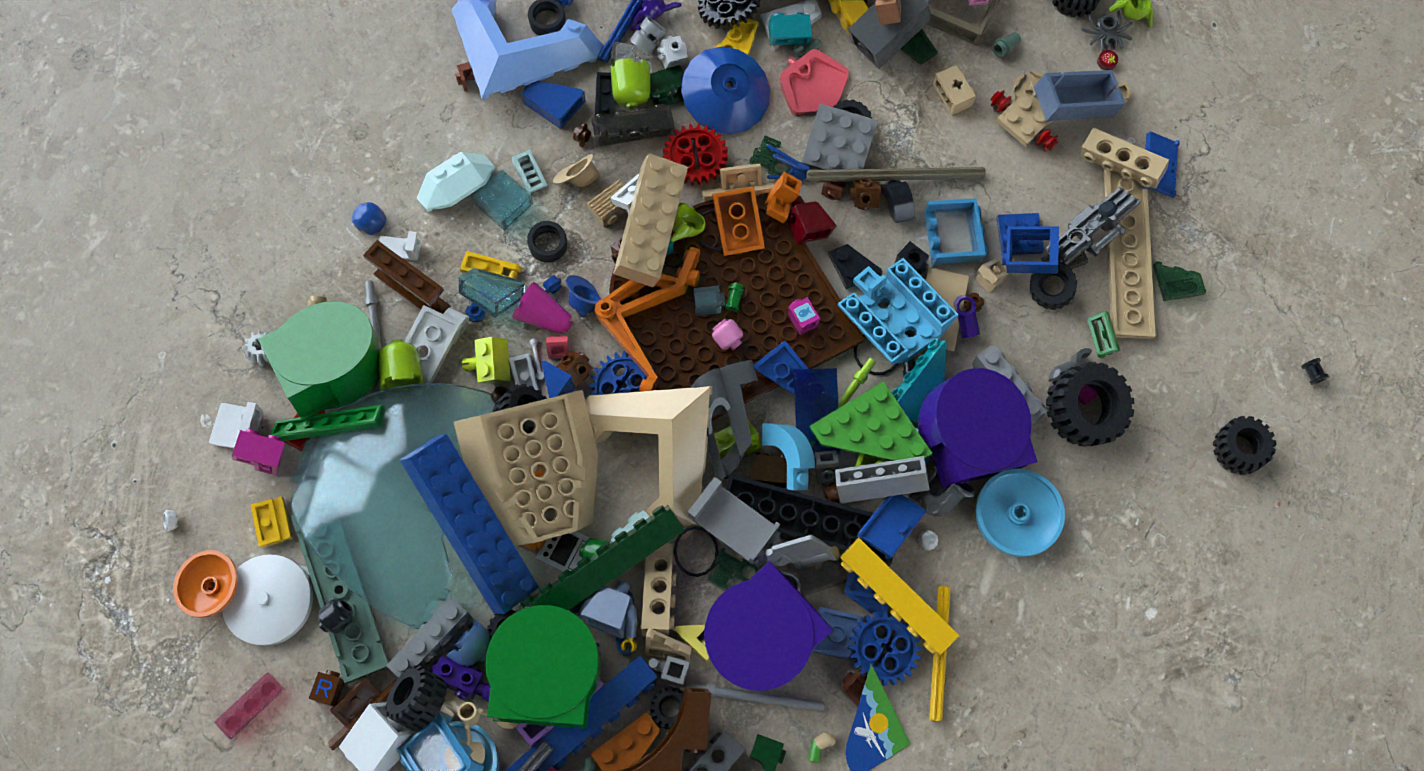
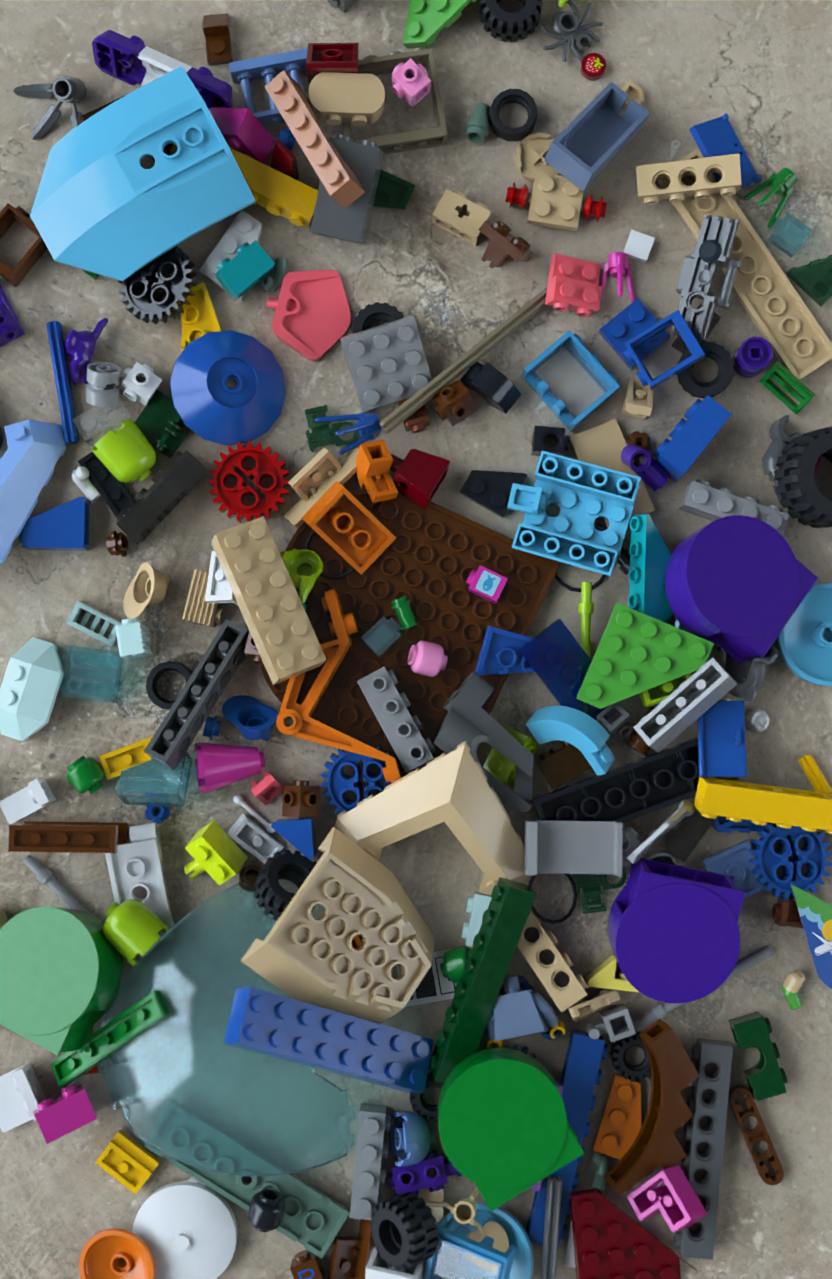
camera: 35 degrees left, 15 degrees up
(170, 520) = (29, 1232): white piece -> none
(448, 256) = (85, 775): none -> green head
(546, 194) = (133, 639): none -> light aqua brick
(558, 254) = (198, 696): none -> dark grey brick
(590, 81) = (80, 477): none -> white arm
(678, 352) = (395, 719): none -> light grey brick
(969, 121) = (503, 244): none -> reddish brown plate
(999, 176) = (573, 285): none -> coral plate
(1012, 318) = (691, 437): none -> blue brick
(1035, 41) = (513, 96): none -> black tyre
(1037, 186) = (618, 268): none -> dark pink plant
(1061, 183) = (638, 246): none -> white tile
(1091, 297) = (752, 357): none -> dark purple wheel
(1171, 240) = (788, 234): none -> clear light blue brick
(1187, 206) = (780, 184): none -> green plant

